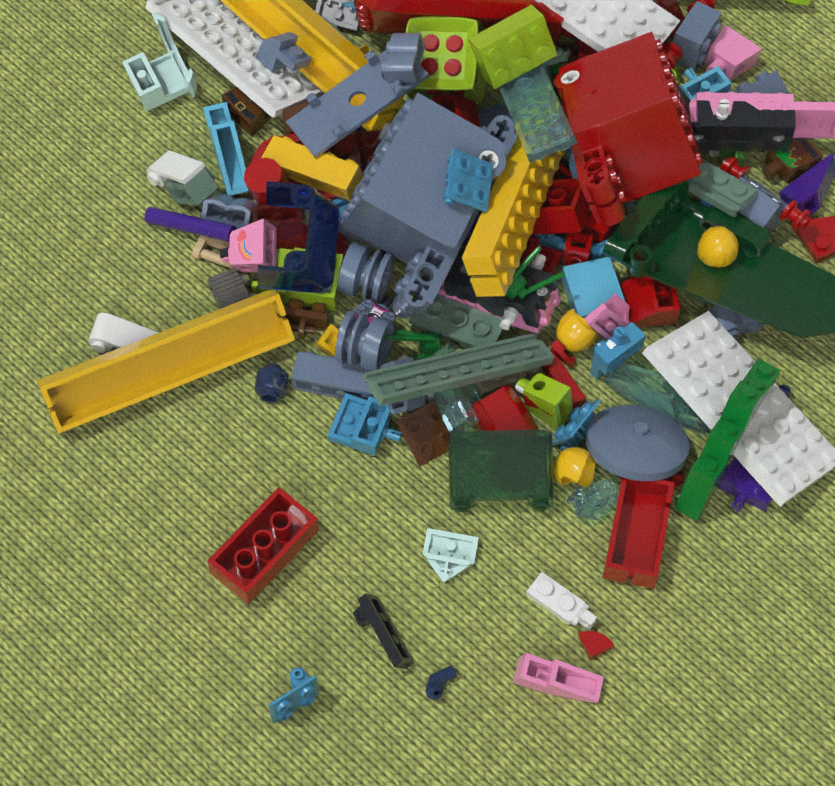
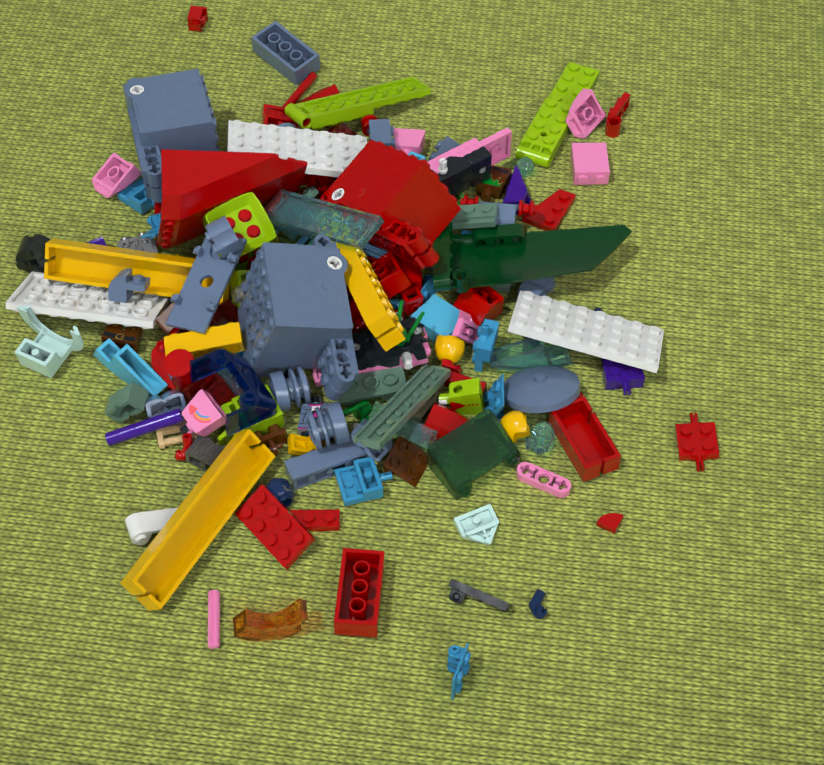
camera: 35 degrees left, 10 degrees down
(105, 477) = (213, 619): none -> bright pink axle
(150, 520) = (270, 626): none -> clear orange arch
(174, 167) = (104, 396): white door -> none
(219, 267) = (187, 441): none -> red arm
(236, 417) = (275, 526): none -> red plate
(280, 432) = (318, 519): none -> red plate
(468, 181) = (332, 280): dark azure hinge -> none
(513, 46) = (288, 195): lime brick -> none
(557, 678) = (606, 555): bright pink slope -> none
(560, 536) = (540, 472): none -> bright pink beam
(560, 602) = (571, 511): white hinge -> none
(718, 247) = (498, 249): yellow hair -> none
(725, 438) = (598, 352): green arch -> none
(770, 615) = (697, 441): none -> red plate

